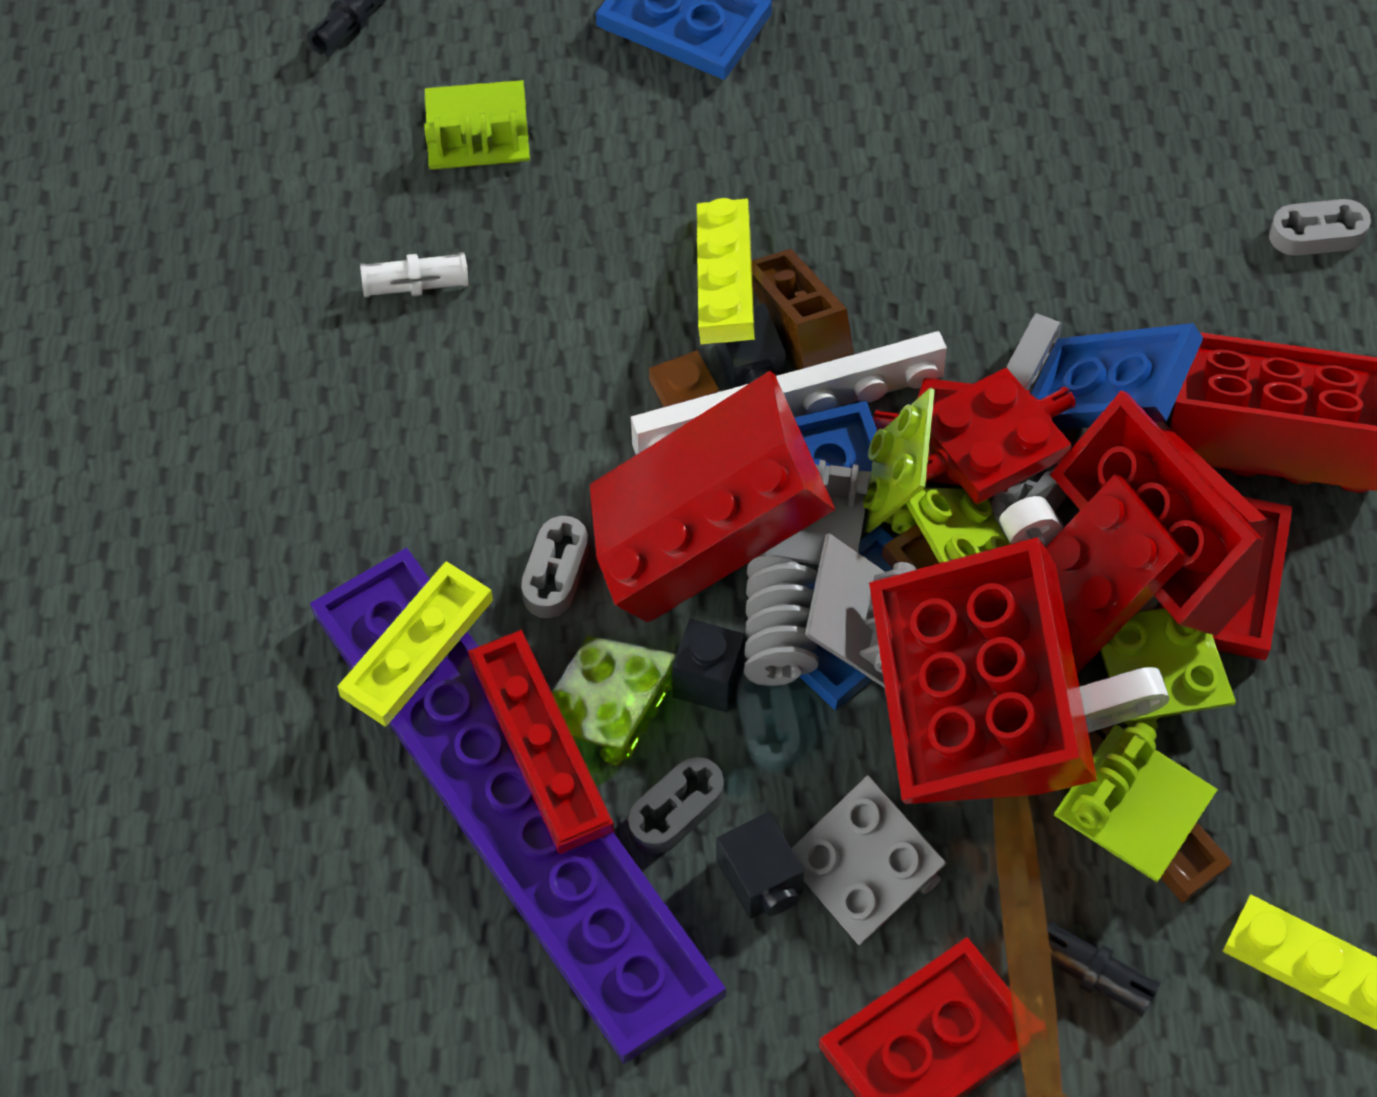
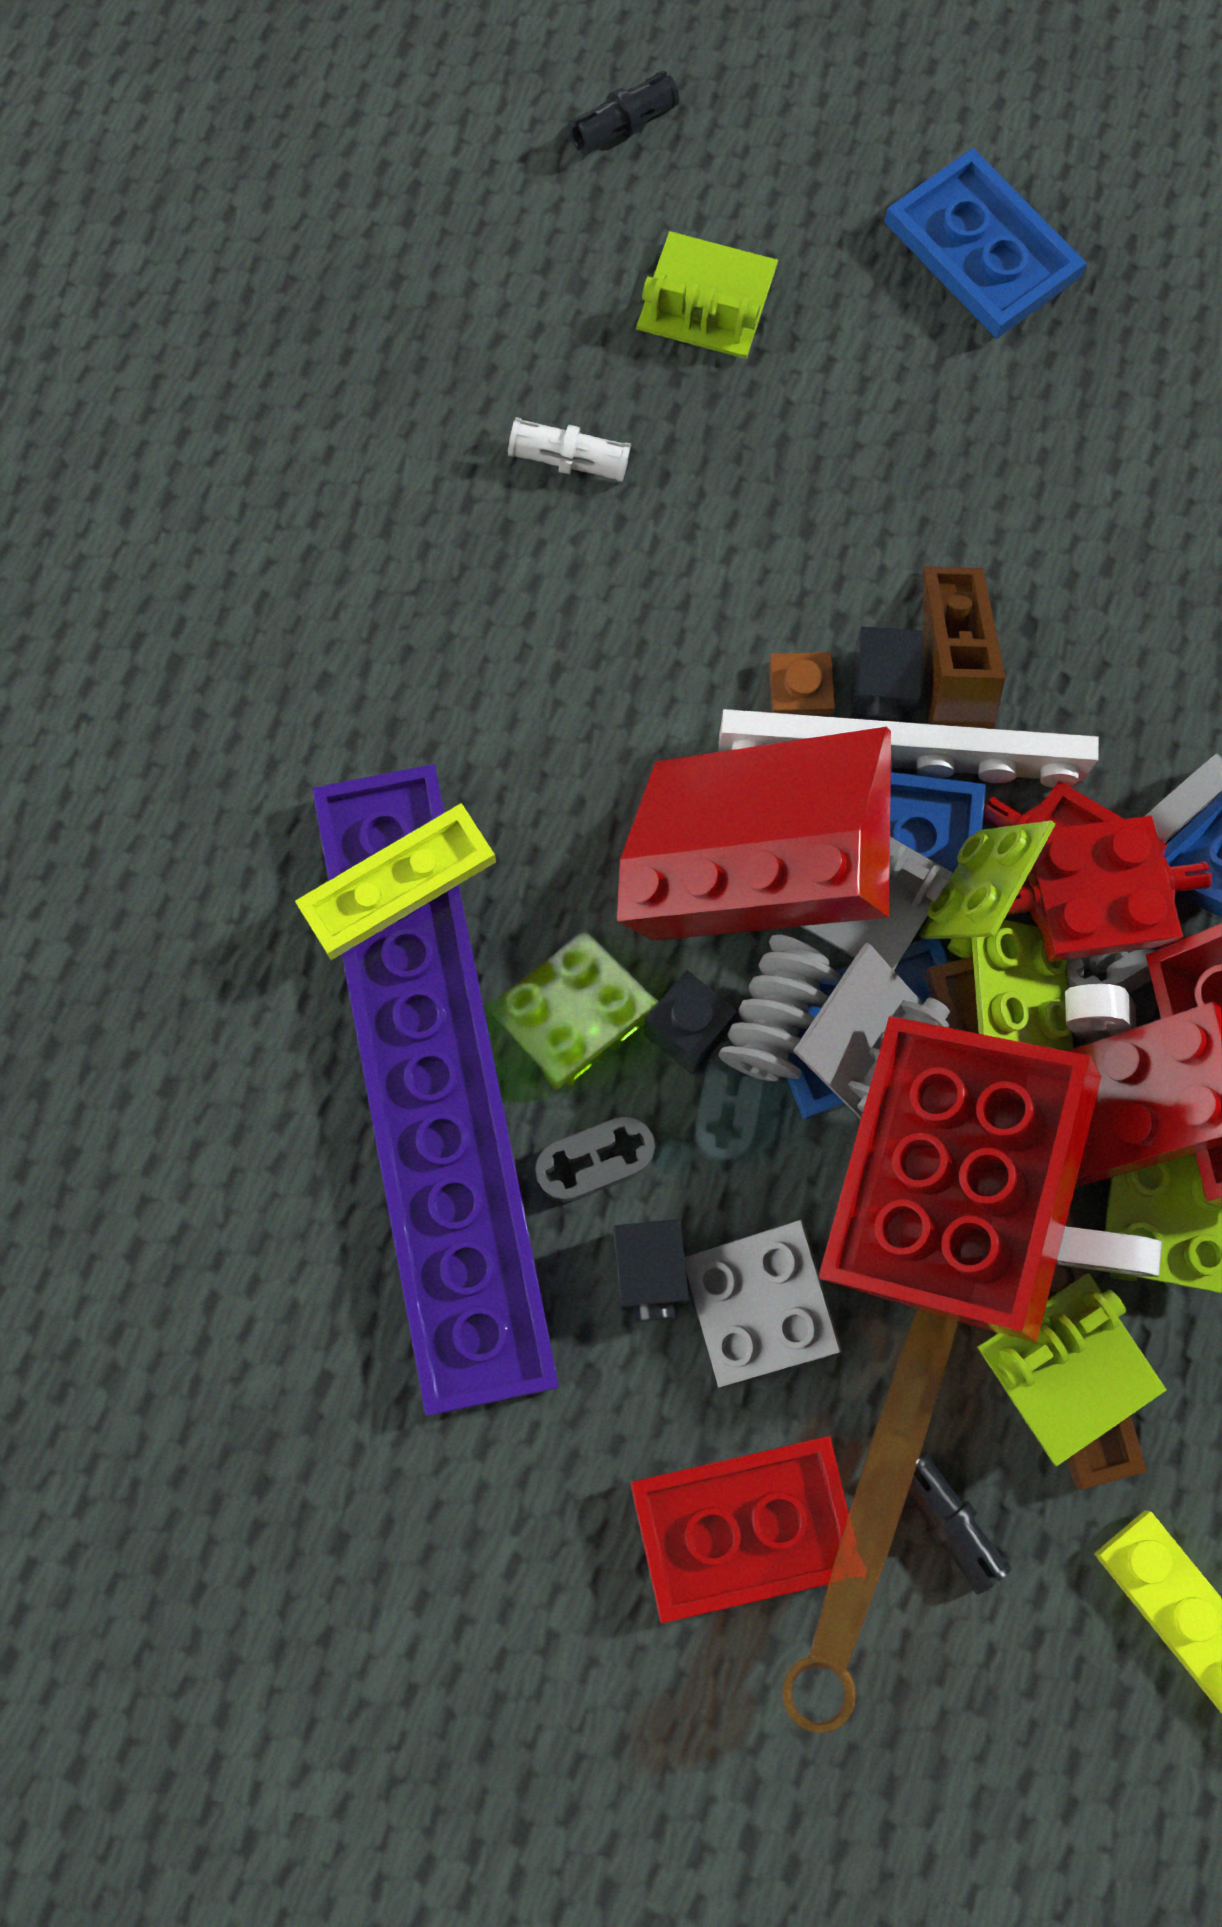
camera: 20 degrees right, 15 degrees up
(541, 742) = (480, 1040): red tile -> none
(544, 562) = (570, 833): light grey beam -> none
(724, 271) = (895, 576): neon yellow plate -> none

